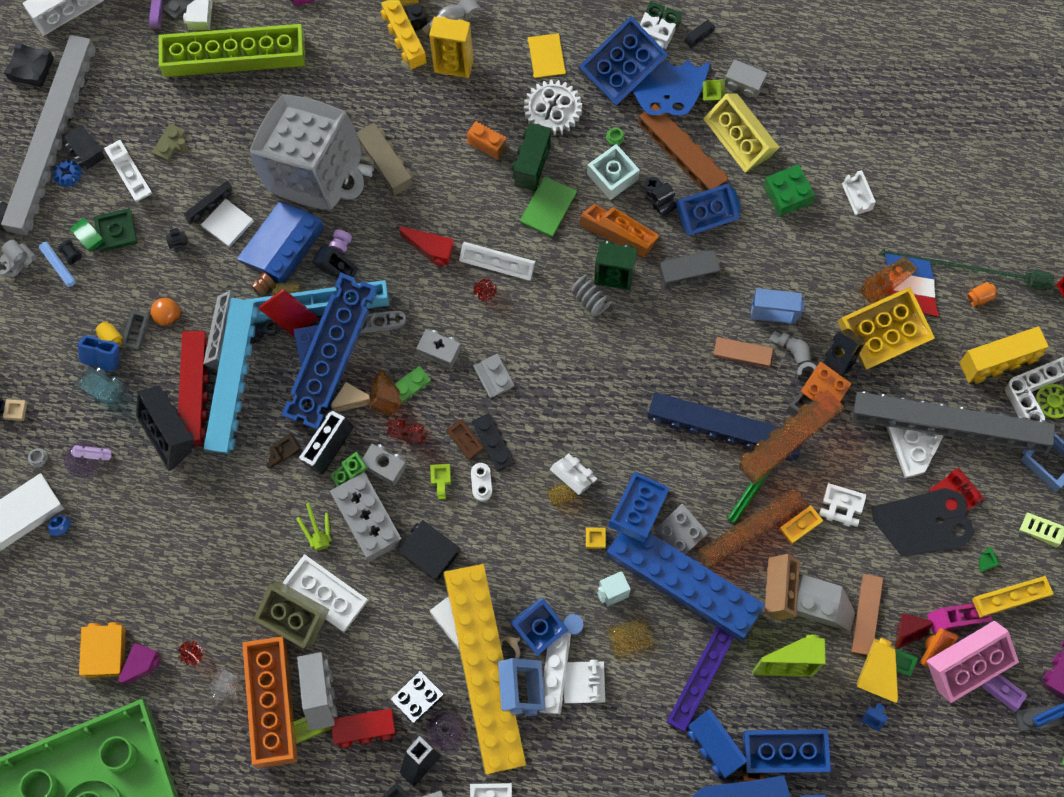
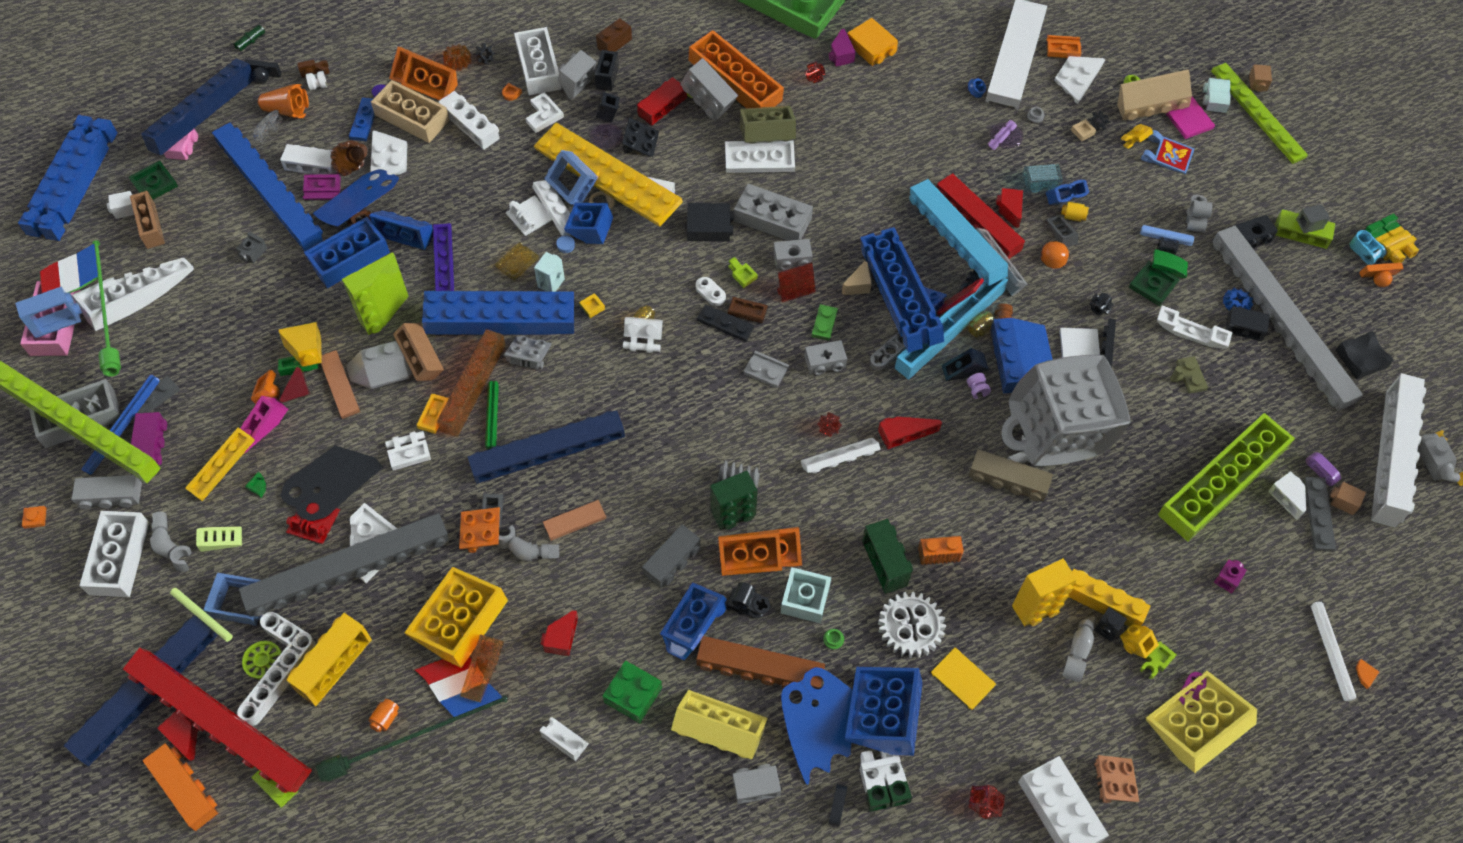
camera: 140 degrees right, 10 degrees down
(155, 375) = (1010, 205): none -> red slope
(163, 426) = (970, 170): black slope -> none
(224, 685) = (776, 69): clear brick -> none
(283, 450) = (875, 221): dark brown slope -> none
(319, 540) = (793, 184): lime plant -> none
(326, 442) = (846, 239): black brick -> none
(350, 468) = (813, 231): bright green slope -> none
(384, 395) = (835, 296): clear orange slope -> none
(548, 207) = (838, 533): bright green tile -> none
(638, 507) = (571, 335): blue plate -> none
(714, 89) = (777, 745): lime window -> none
(777, 306) = (568, 566): medium blue window -> none
(790, 436) = (481, 459): clear orange brick -> none
(814, 265) = (560, 635): none -> red slope
(852, 345) = (481, 564): black brick -> none
(875, 717) = (291, 316): blue tile -> none
(972, 661) = (230, 390): bright pink brick -> none
(1005, 692) = (195, 394): medium lavender plate -> none

